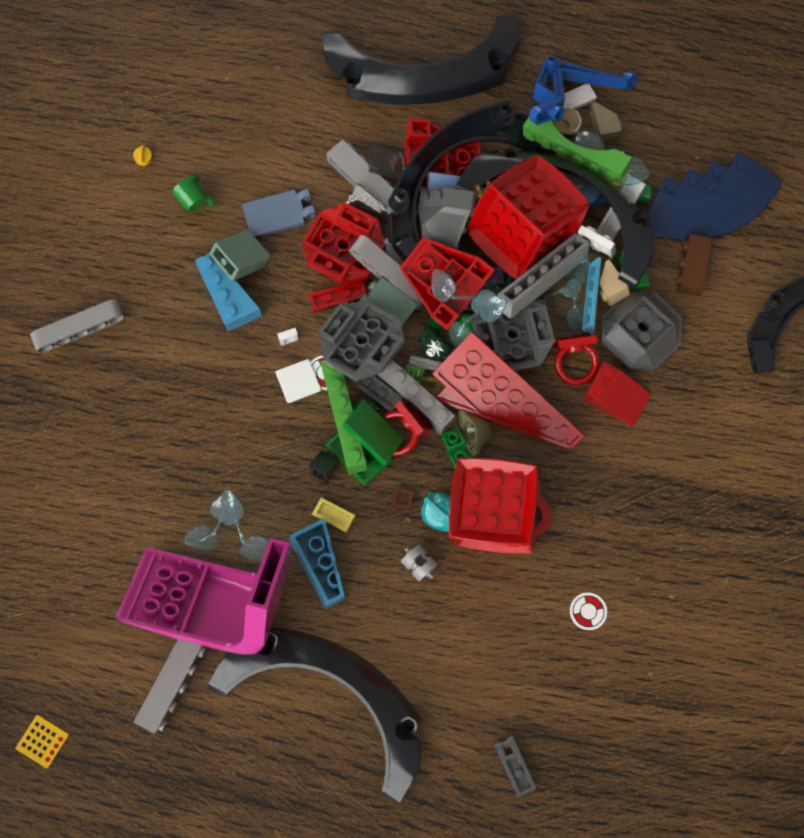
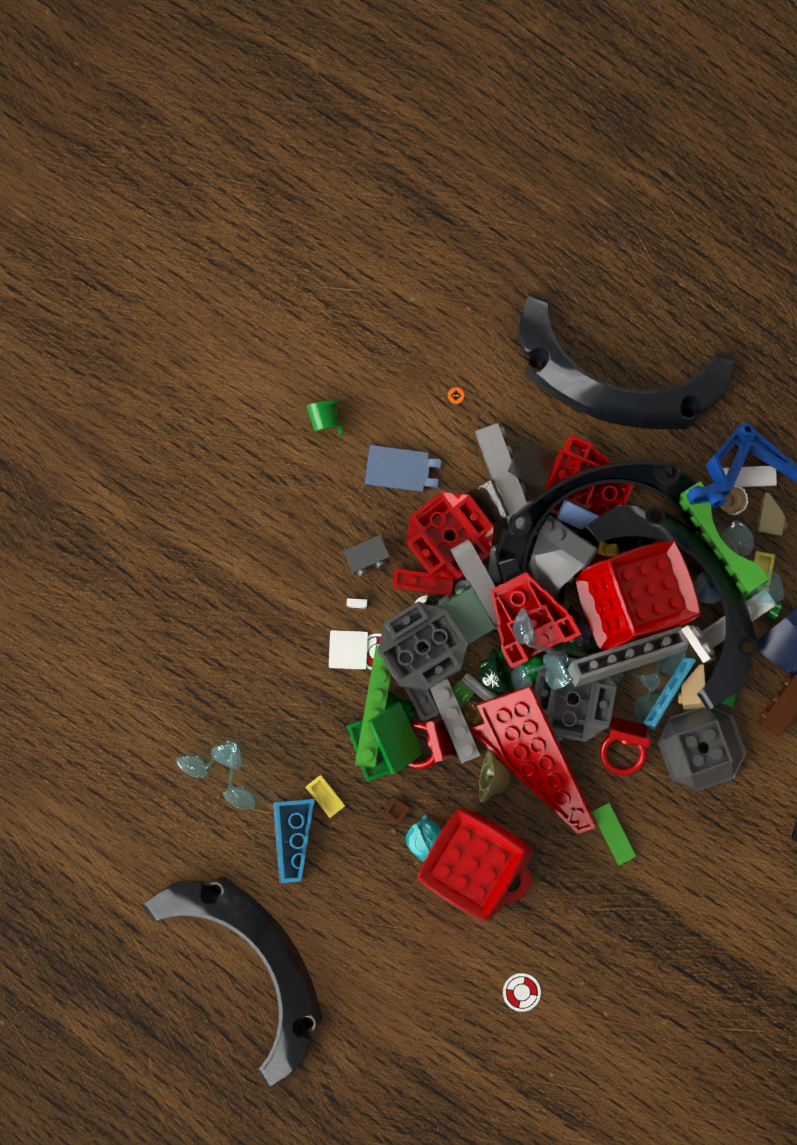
camera: 25 degrees right, 10 degrees up
(76, 326) = (159, 502): light grey beam -> none
(142, 155) = (293, 349): yellow tile -> none
(169, 685) = (118, 879): light grey brick -> none
(207, 600) = (173, 828): dark pink piece -> none
(228, 296) = (315, 534): dark azure wedge -> none
(239, 255) = (345, 502): sand green brick -> none
(278, 291) = (367, 555): none -> dark grey brick
(297, 137) = (455, 395): none -> orange sticker
(324, 465) = (337, 746): black slope -> none
(419, 563) = (384, 879): light grey wheel -> none
(455, 445) = (469, 785): green slope -> none
(515, 767) = (387, 1102): dark grey plate -> none
(602, 436) = (613, 834): none -> bright green tile
(617, 394) = (647, 801): red slope -> none

